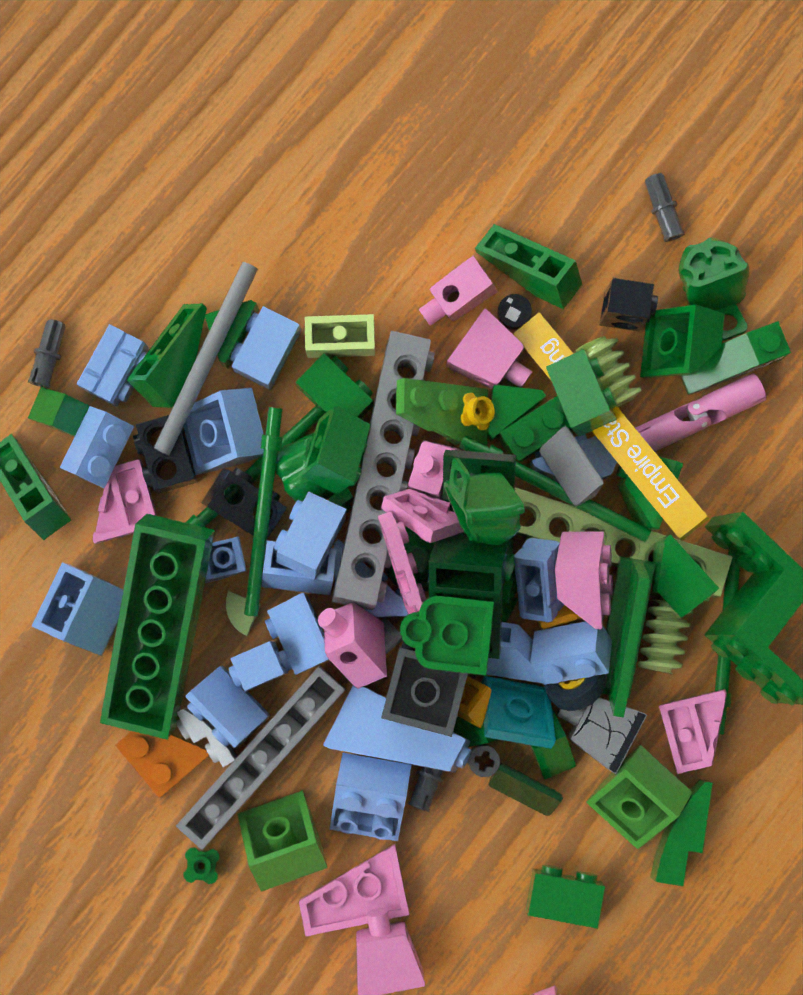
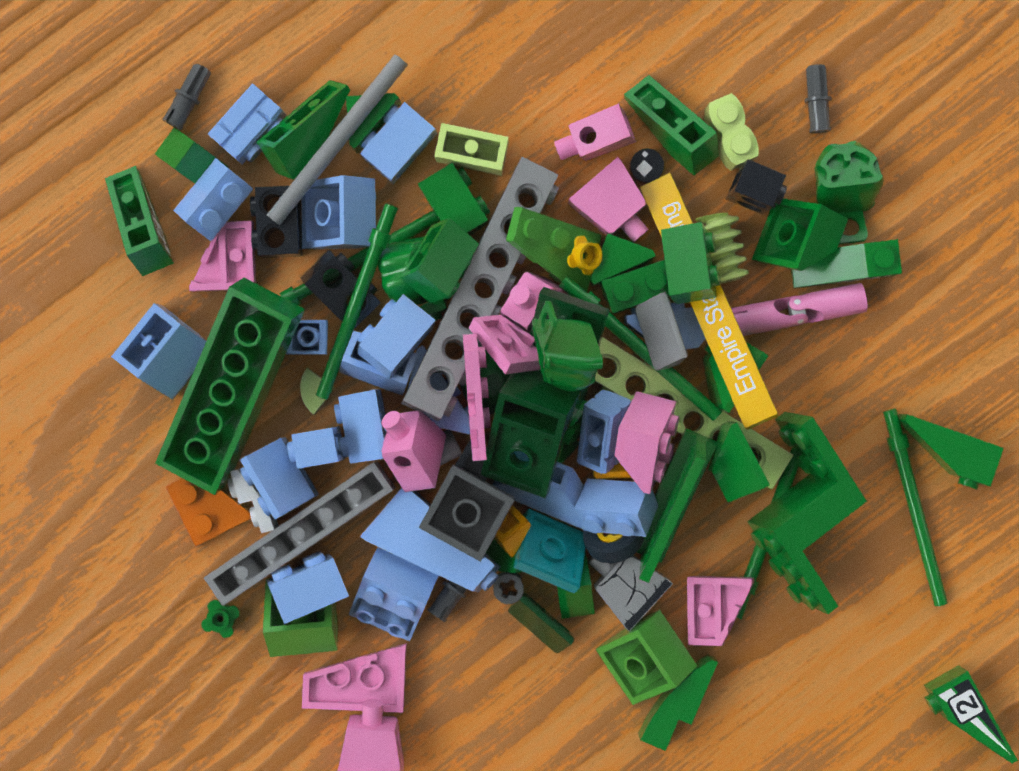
camera: 20 degrees right, 5 degrees up
(282, 809) = (306, 586): none -> light blue slope
(451, 634) = (503, 465): green plate -> none
(565, 897) = (553, 732): green brick -> none
(594, 263) = (735, 139): none -> yellowish green brick
(663, 639) = (707, 517): yellowish green piece -> none

